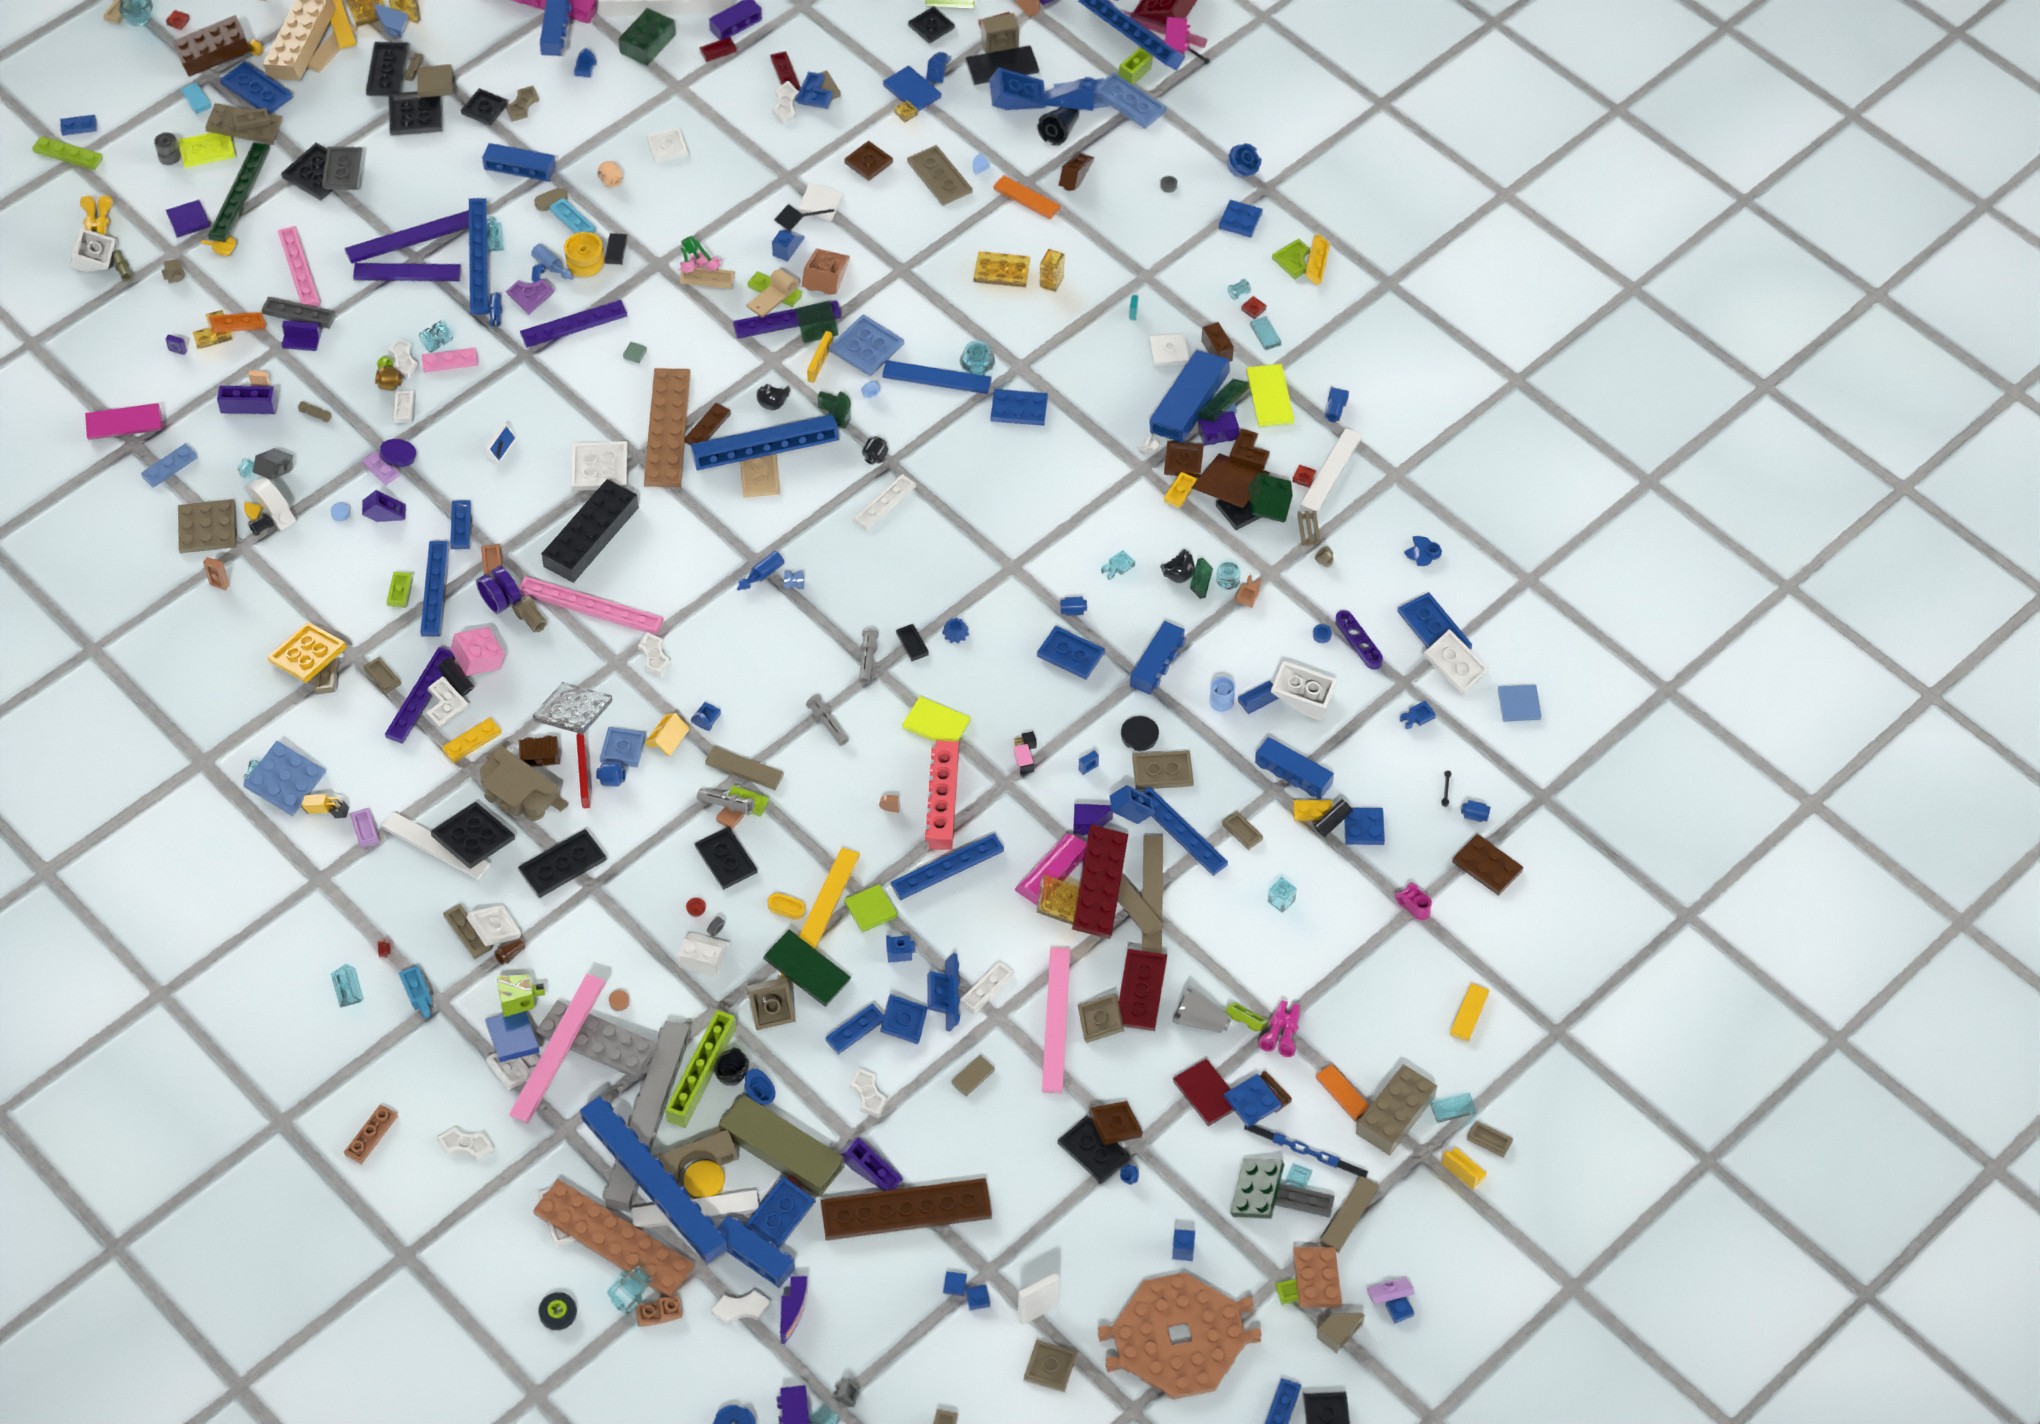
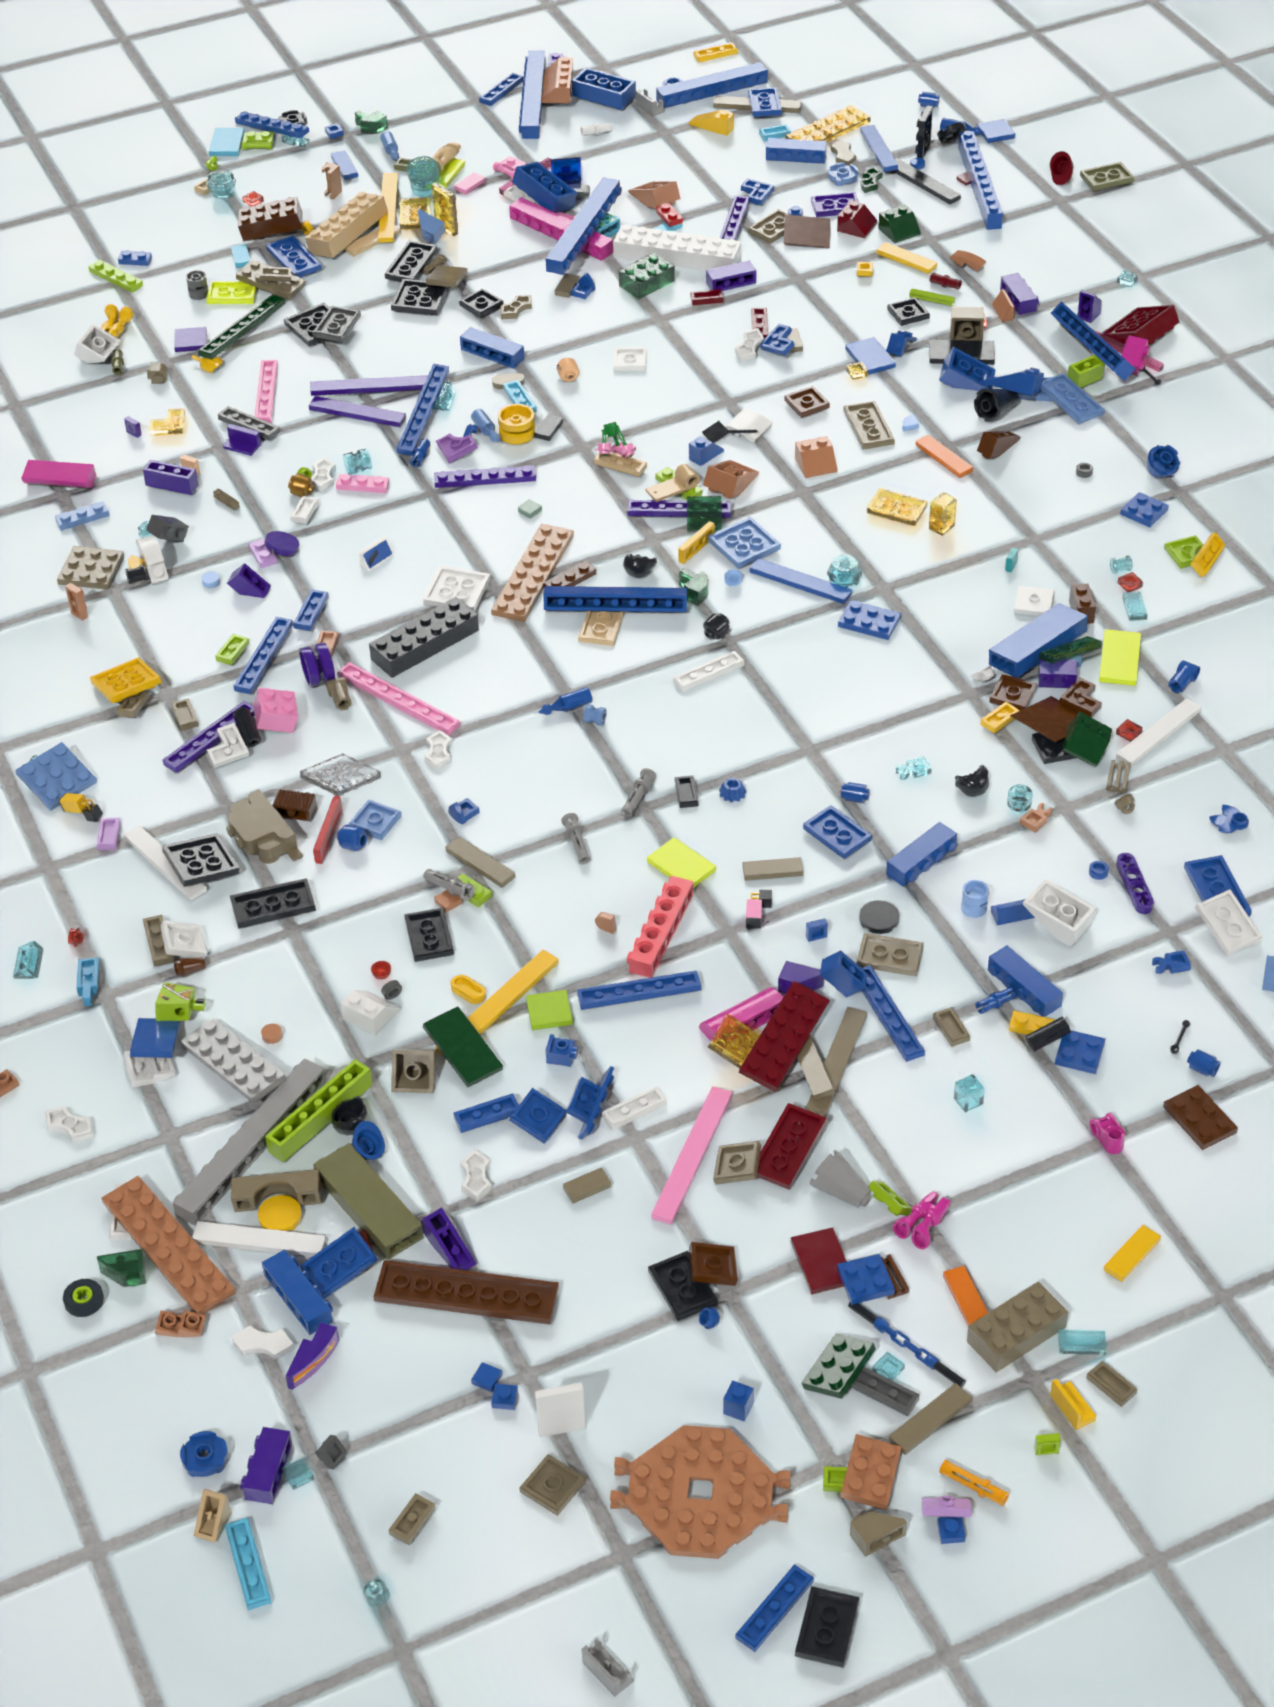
camera: 20 degrees right, 10 degrees down
(236, 322) = (191, 419): orange tile -> none
(471, 740) = (239, 783): yellow plate -> none
(557, 1048) = (190, 1058): bright pink tile -> none
(566, 65) = (566, 284): none -> dark tan tile
(584, 1273) = (124, 1267): none -> clear green slope
(633, 1286) = (163, 1293): clear light blue piece -> none
(654, 1180) = (225, 1197): blue brick -> none
(668, 733) = (421, 817): yellow panel -> none
(901, 227) = (815, 457): none -> nougat slope
(1023, 706) = (772, 868): none -> tile
(1201, 578) = (992, 795): clear green tile -> none
(1274, 794) = (995, 1000): none -> blue pin
(1429, 1267) = (950, 1470): none -> light orange pin
(1455, 1210) = (1047, 1444): none -> lime tile

